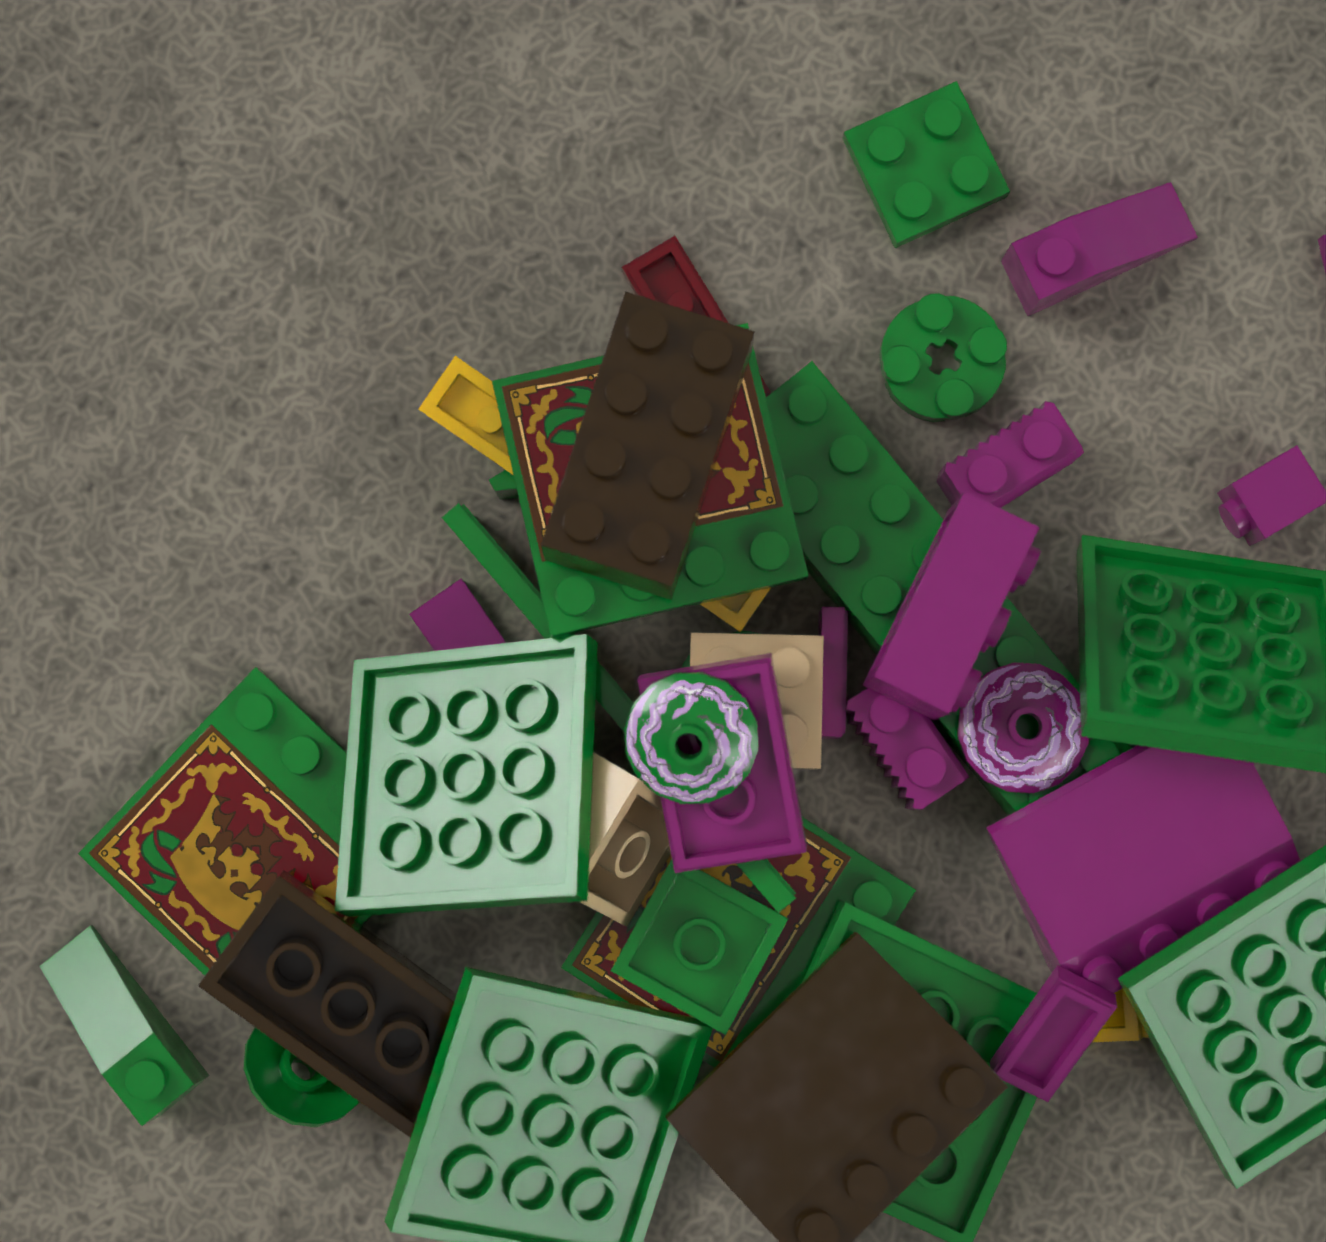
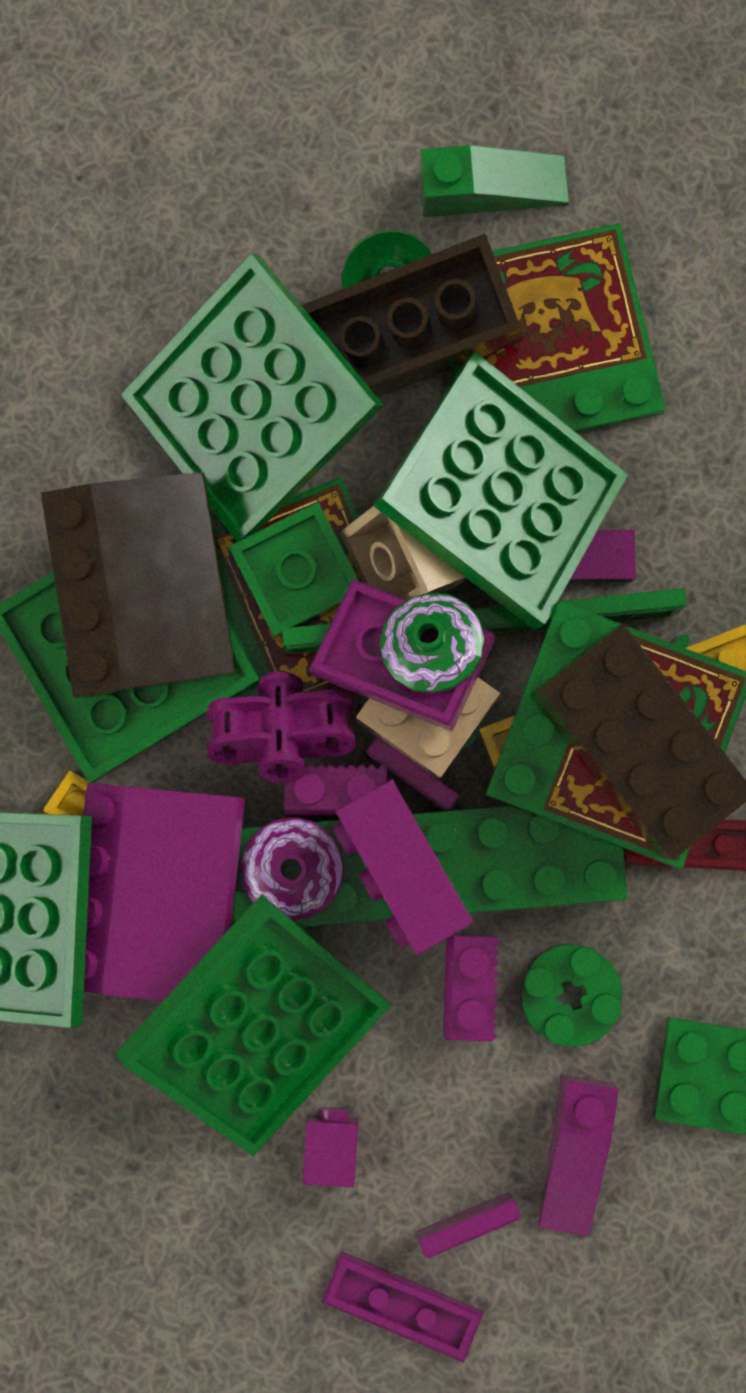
camera: 120 degrees right, 0 degrees up
(897, 863) = (262, 727): none -> magenta axle
(1053, 1033) = (85, 753): magenta tile -> none
(1248, 307) = (468, 1225): none -> magenta tile

